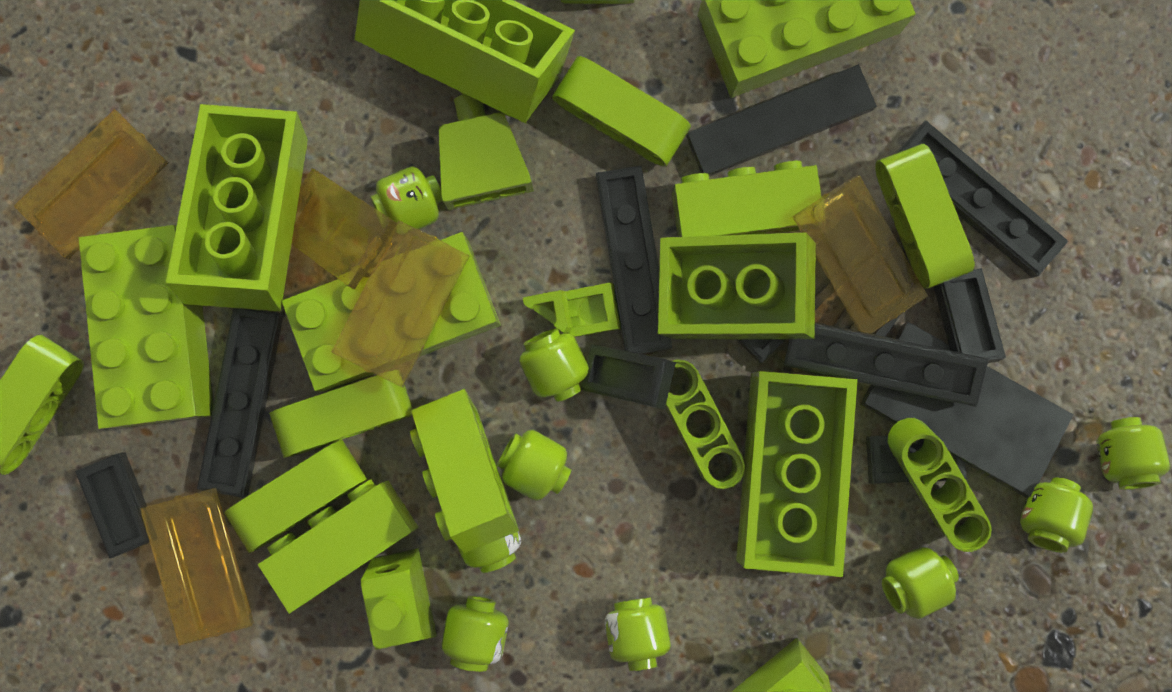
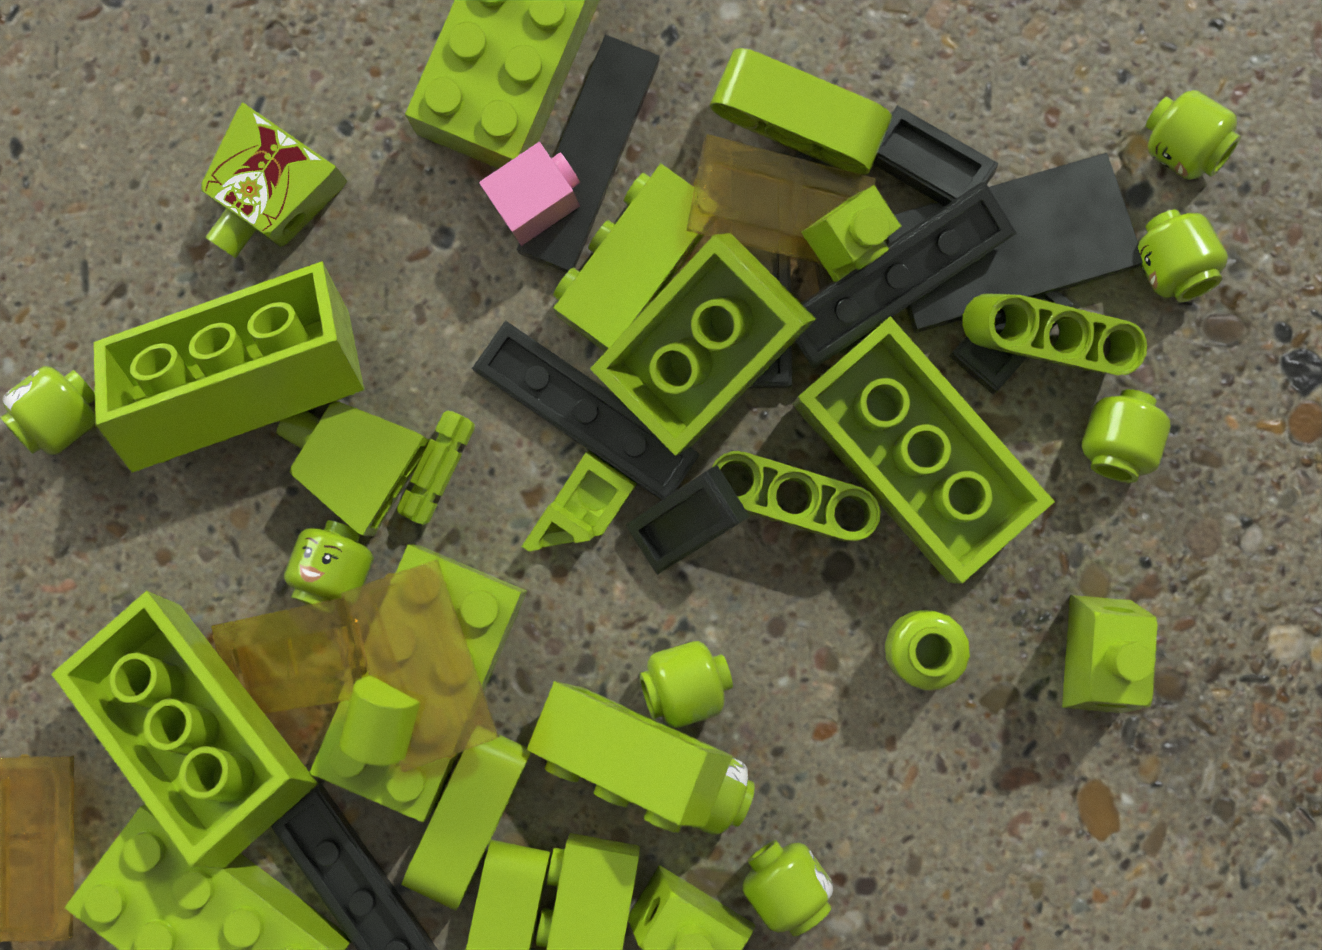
camera: 50 degrees left, 0 degrees up
(345, 311) = (378, 723): none -> lime brick
(520, 207) = (436, 467): none -> lime axle
(553, 364) = (611, 577): lime head -> none
(621, 111) = (438, 290): lime beam -> none
(637, 633) = (929, 736): lime head -> none
(686, 585) = (927, 650): none -> lime head
(729, 109) = (532, 192): none -> bright pink brick
(884, 312) = (852, 233): none -> lime brick
(990, 205) = (846, 41): pearl dark grey tile -> none

